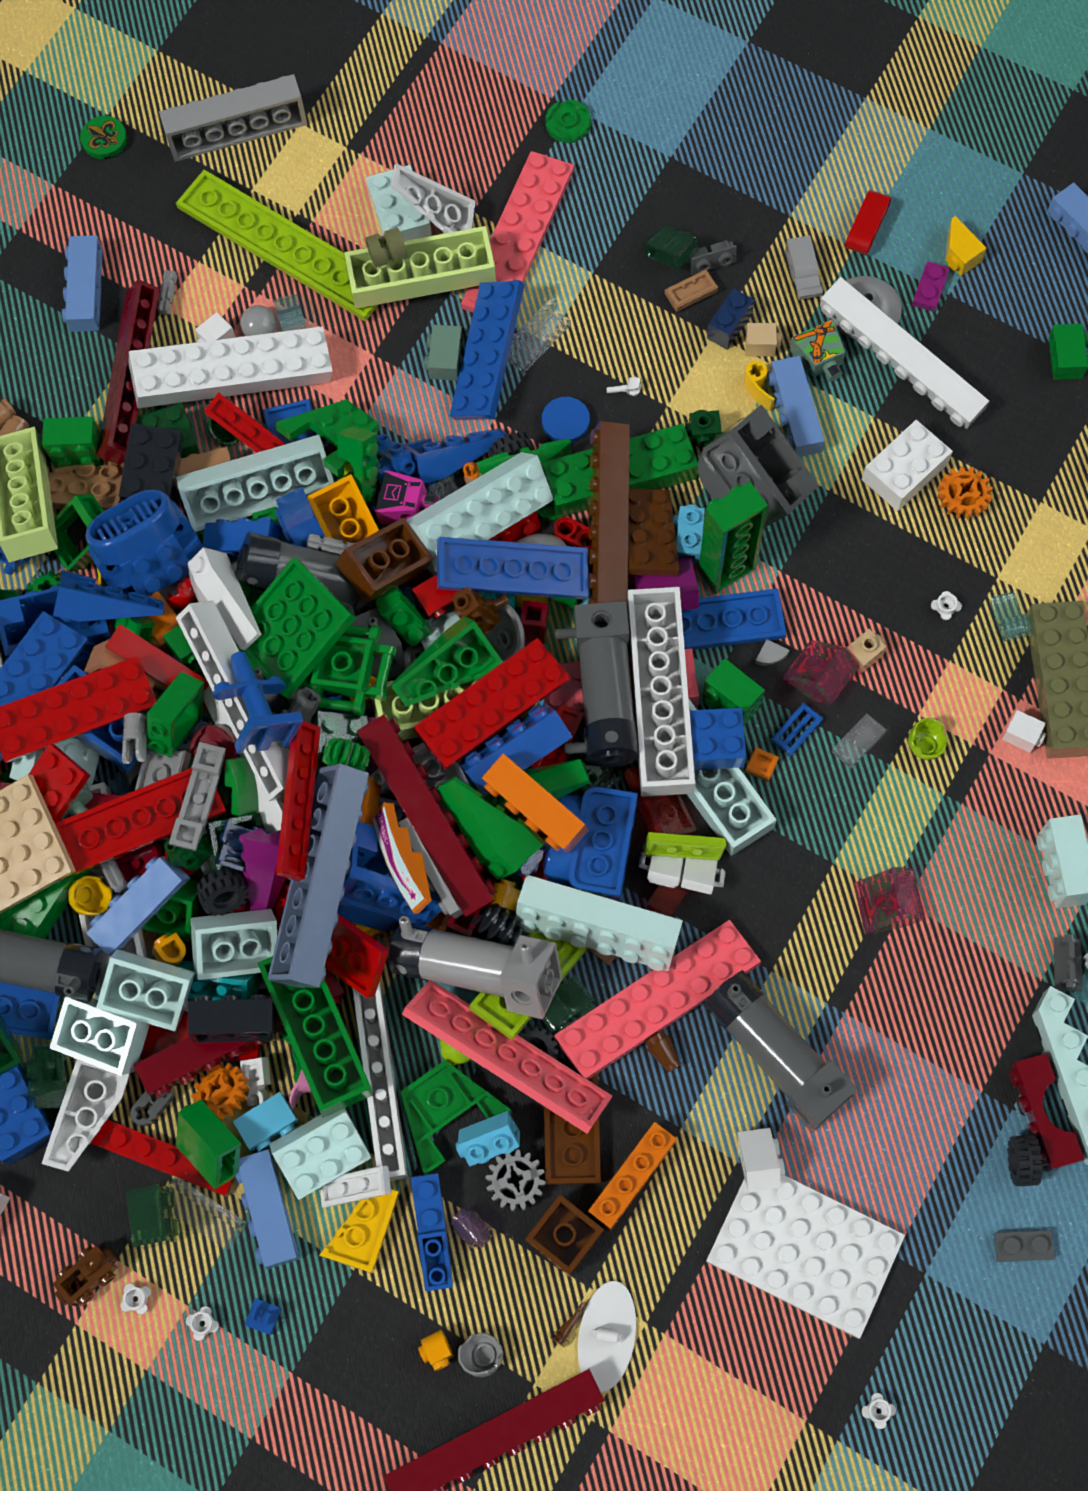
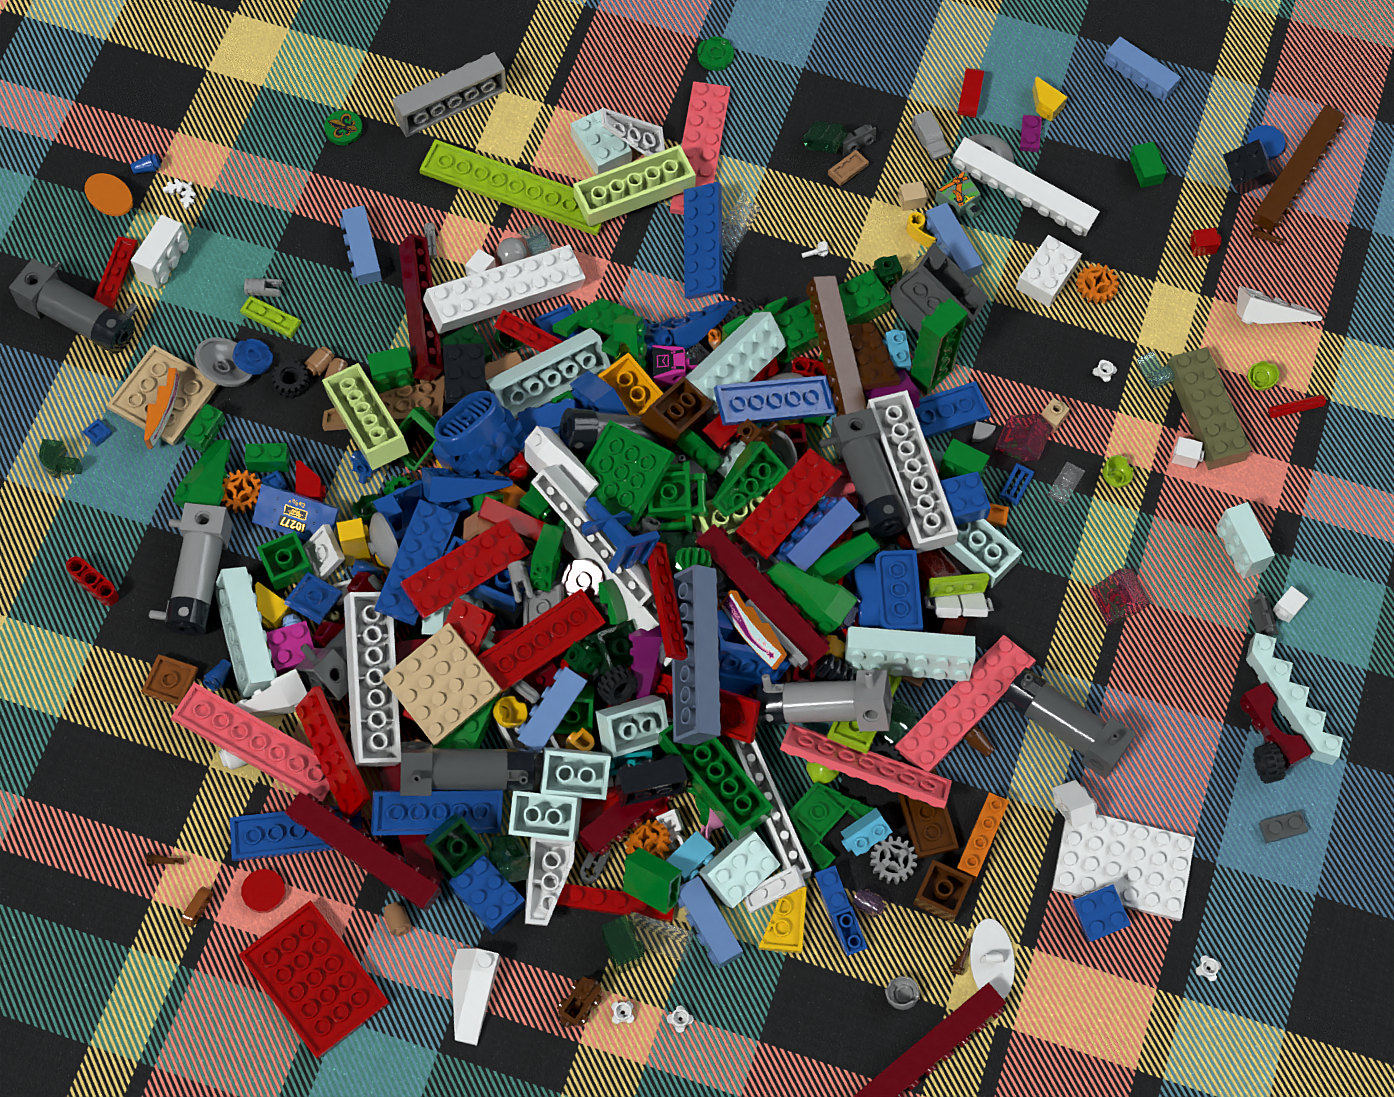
camera: 20 degrees left, 5 degrees down
(198, 797) = (584, 613): light grey slope -> none
(233, 847) = (621, 646): dark blue piece -> none
(263, 1316) = (726, 1003): blue tile -> none
(327, 544) = (628, 408): light grey axle -> none
(392, 241) = (609, 173): olive wheel -> none
(436, 1350) = (867, 997): light orange plate -> none
(444, 352) = (668, 249): sand green brick -> none
(535, 803) = (845, 569): orange wedge -> none
(565, 419) = (776, 283): blue tile -> none
(730, 318) = (884, 184): dark blue brick -> none
(755, 1309) = (1100, 912): none -> blue brick

